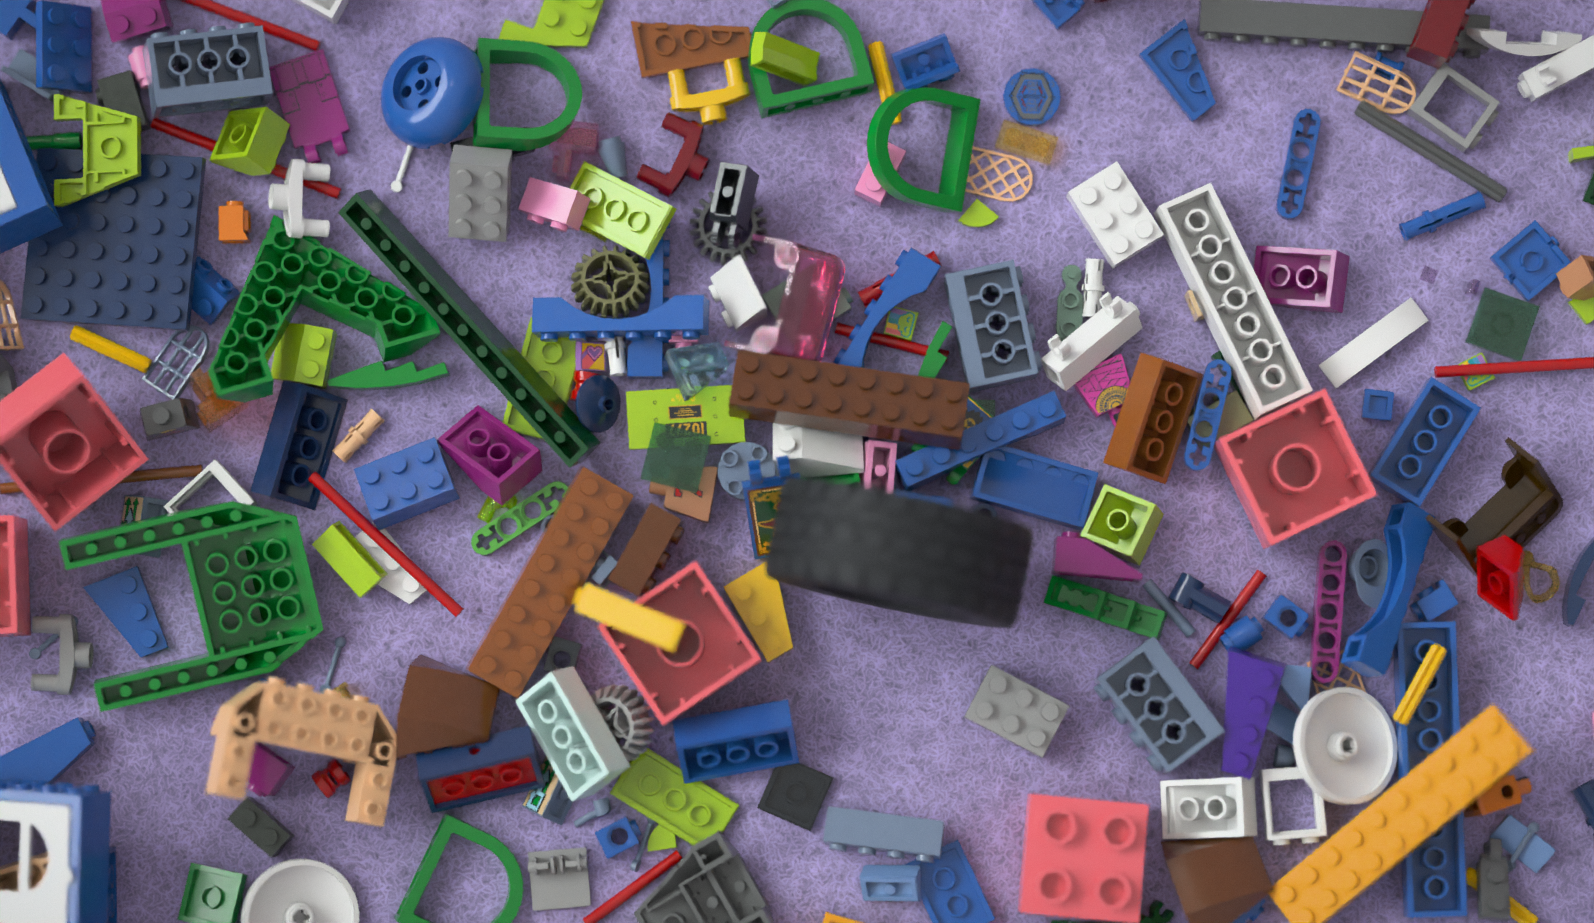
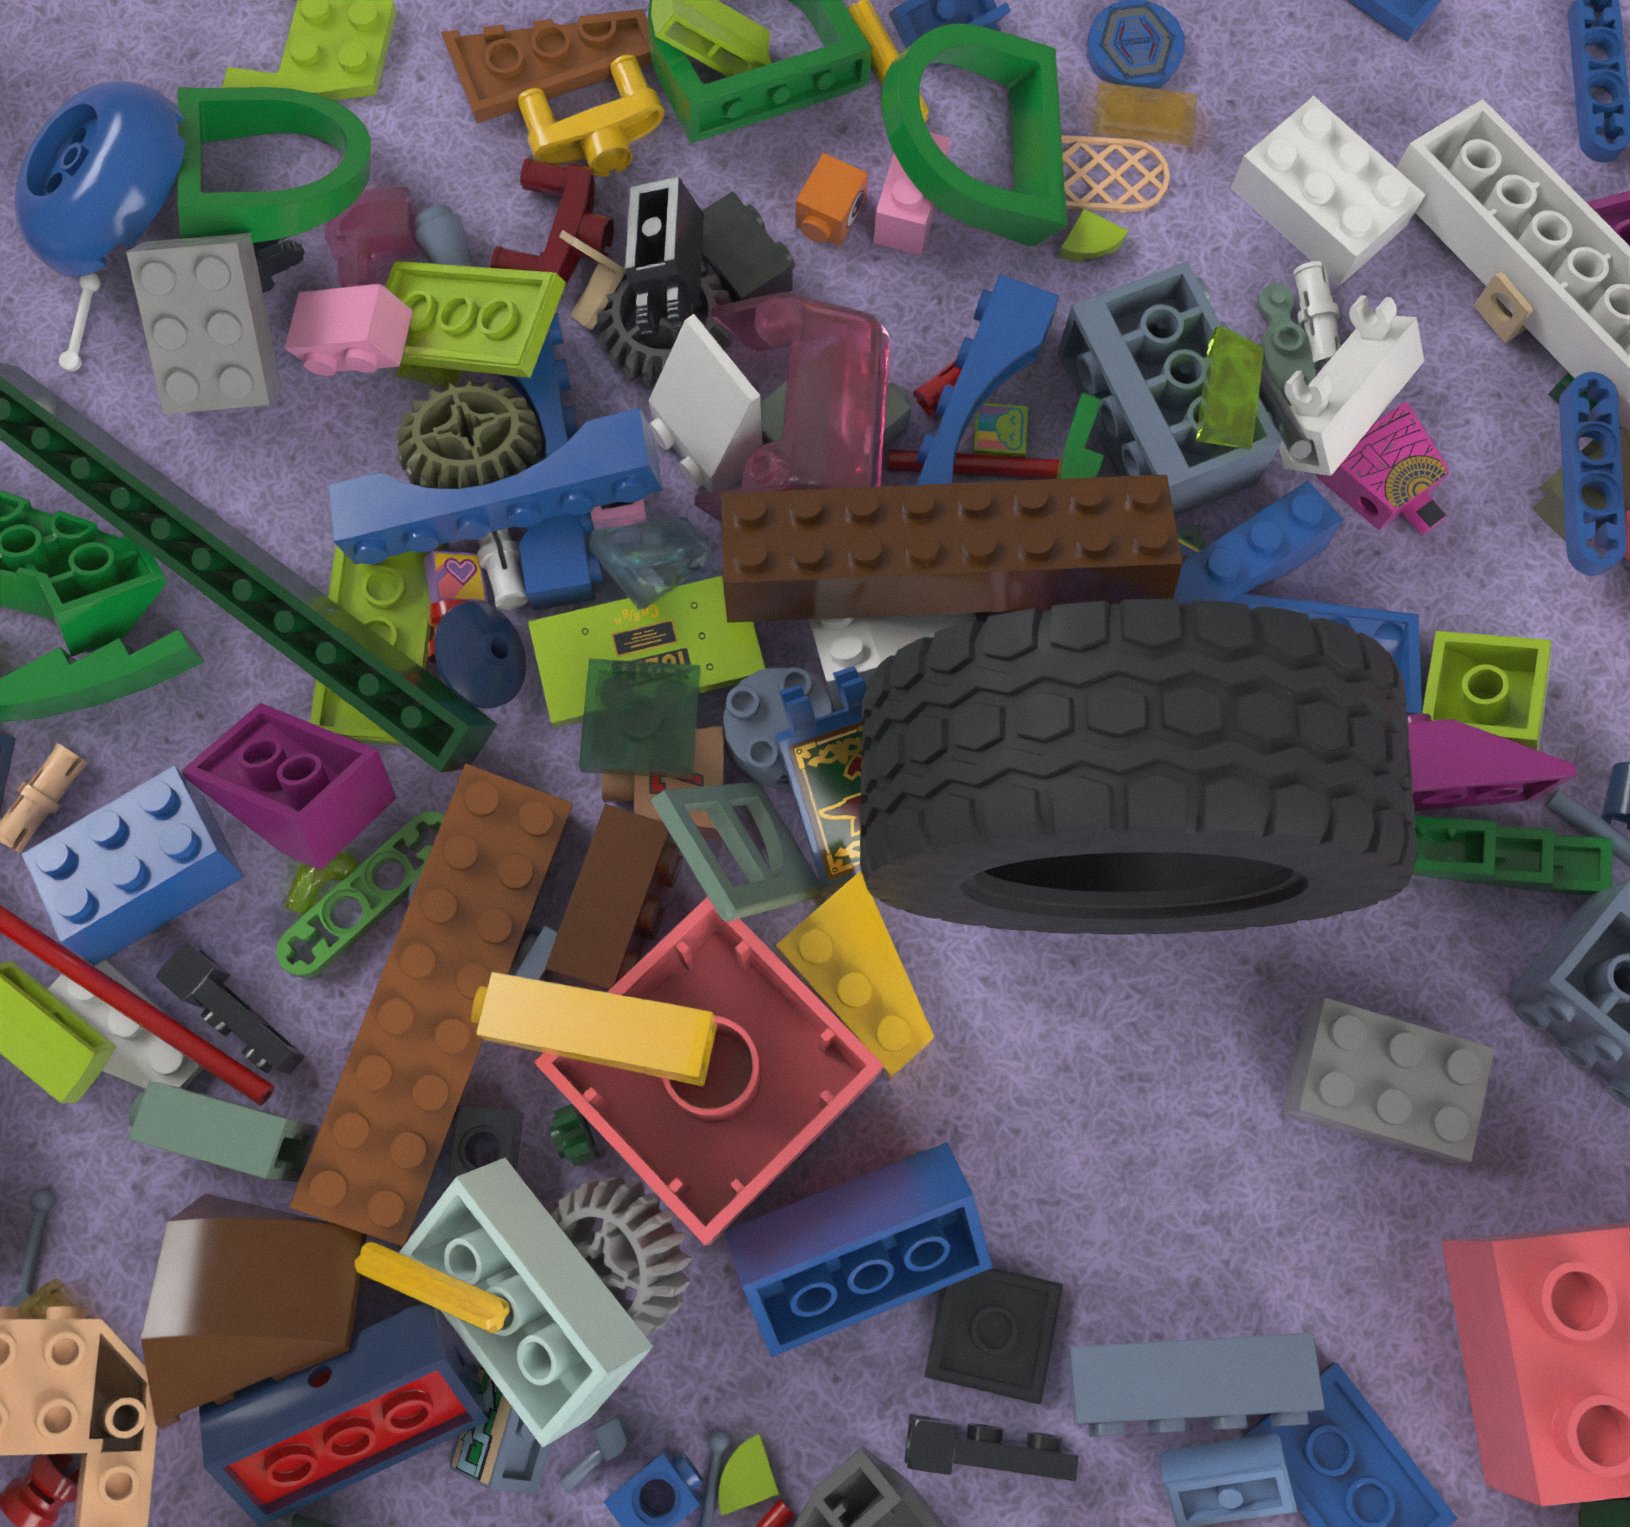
camera: 20 degrees left, 10 degrees down
(430, 547) = (200, 982): none -> black plate
(436, 626) = (220, 1132): none -> sand green brick
(530, 719) = (432, 1287): none -> yellow axle
(606, 661) = (573, 1136): none -> dark green plate
(659, 793) = (722, 1385): lime tile -> none
(695, 200) = (602, 283): none -> tan bracket
(739, 549) = (789, 876): none -> sand green window
(755, 839) = (936, 1445): none -> black plate
(777, 195) = (743, 252): none -> pearl dark grey brick
(833, 169) = (831, 200): none -> orange brick
(1016, 341) = (1230, 390): none -> clear neon green slope
(1045, 336) = (1283, 416): none -> black bar
(1153, 418) = (1497, 495): dark orange brick -> none

